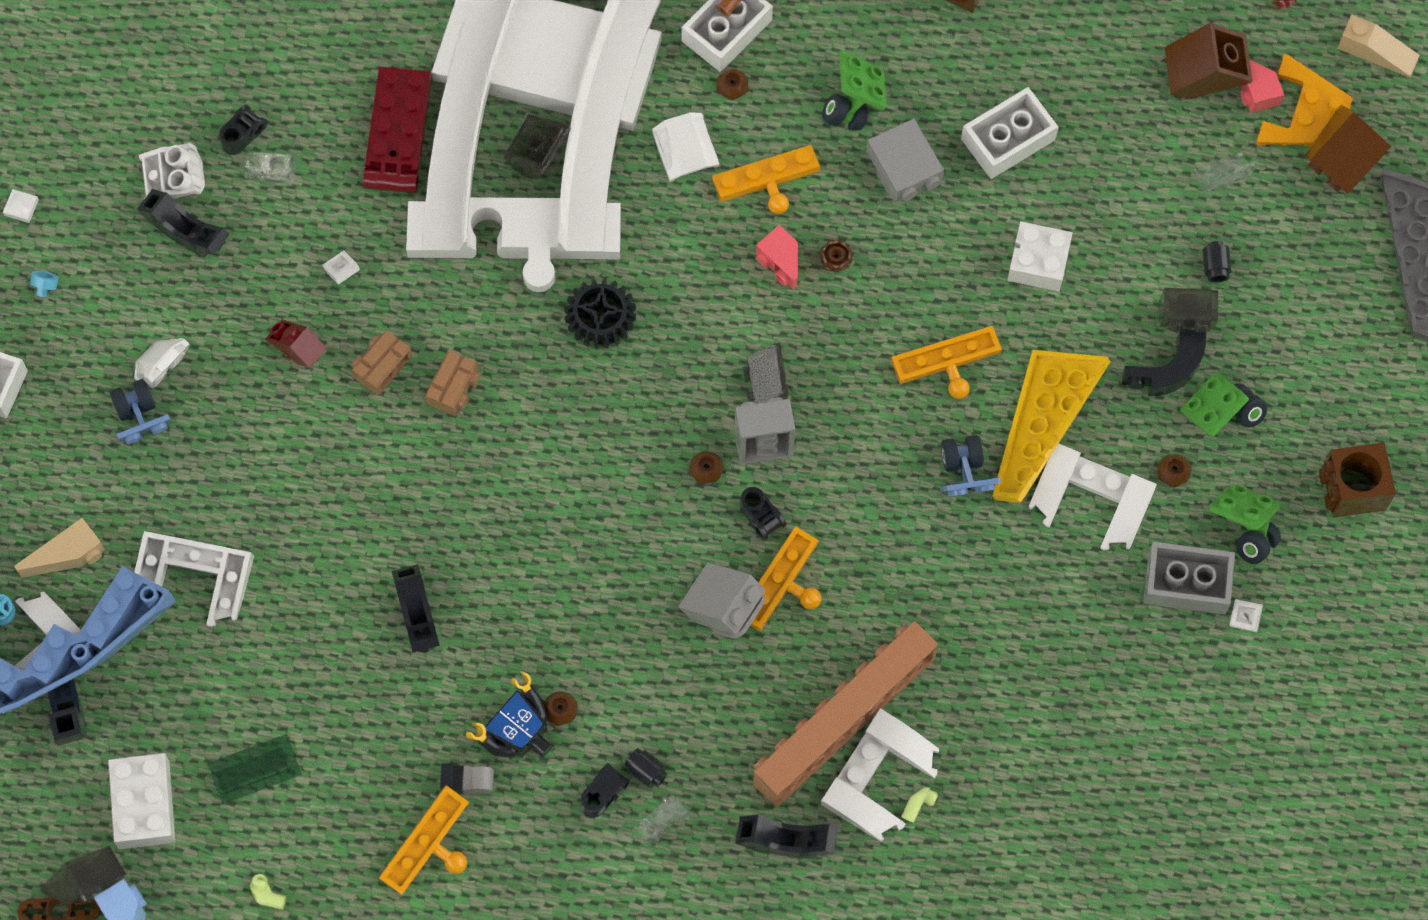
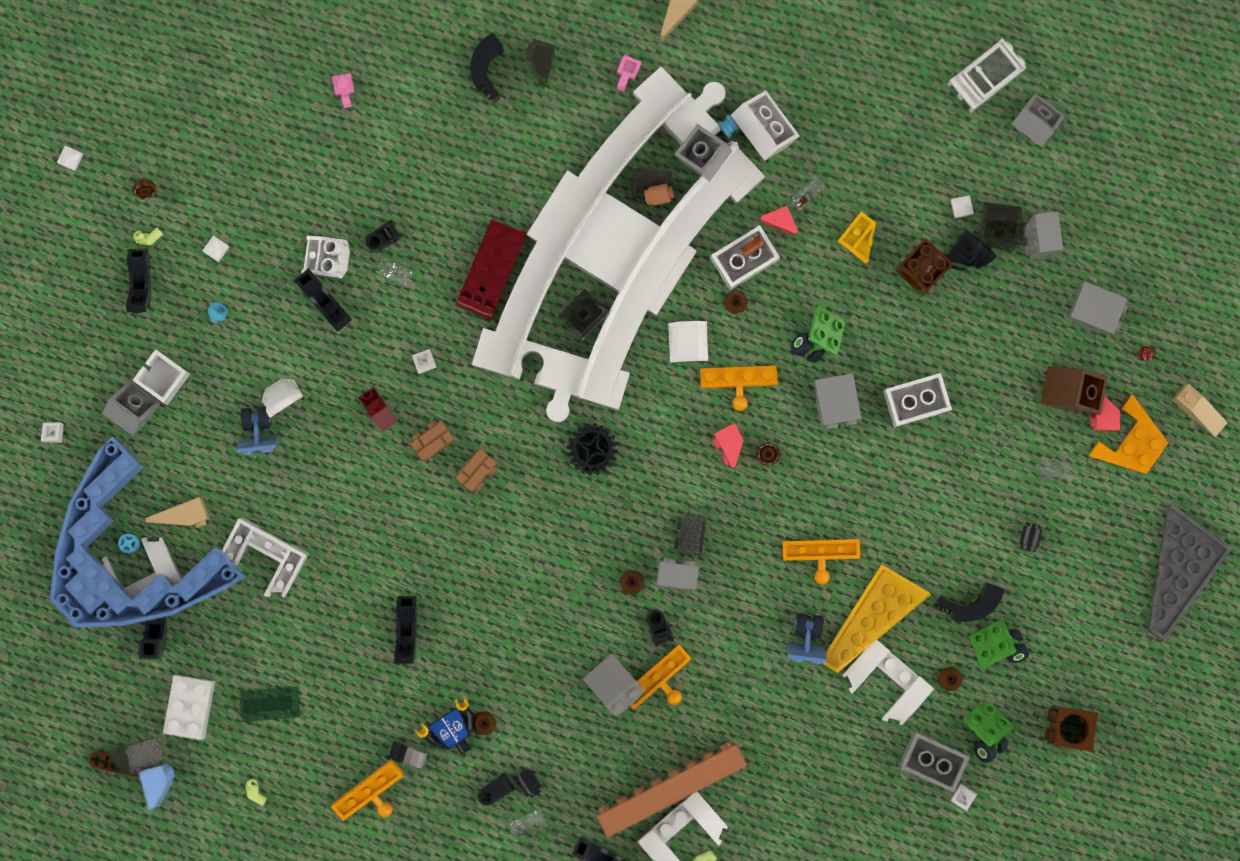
camera: 10 degrees right, 15 degrees up
(1040, 256) = (909, 499): white piece -> none
(1188, 309) = (997, 572): clear smoke slope -> none
(1346, 150) = (1149, 484): reddish brown slope -> none

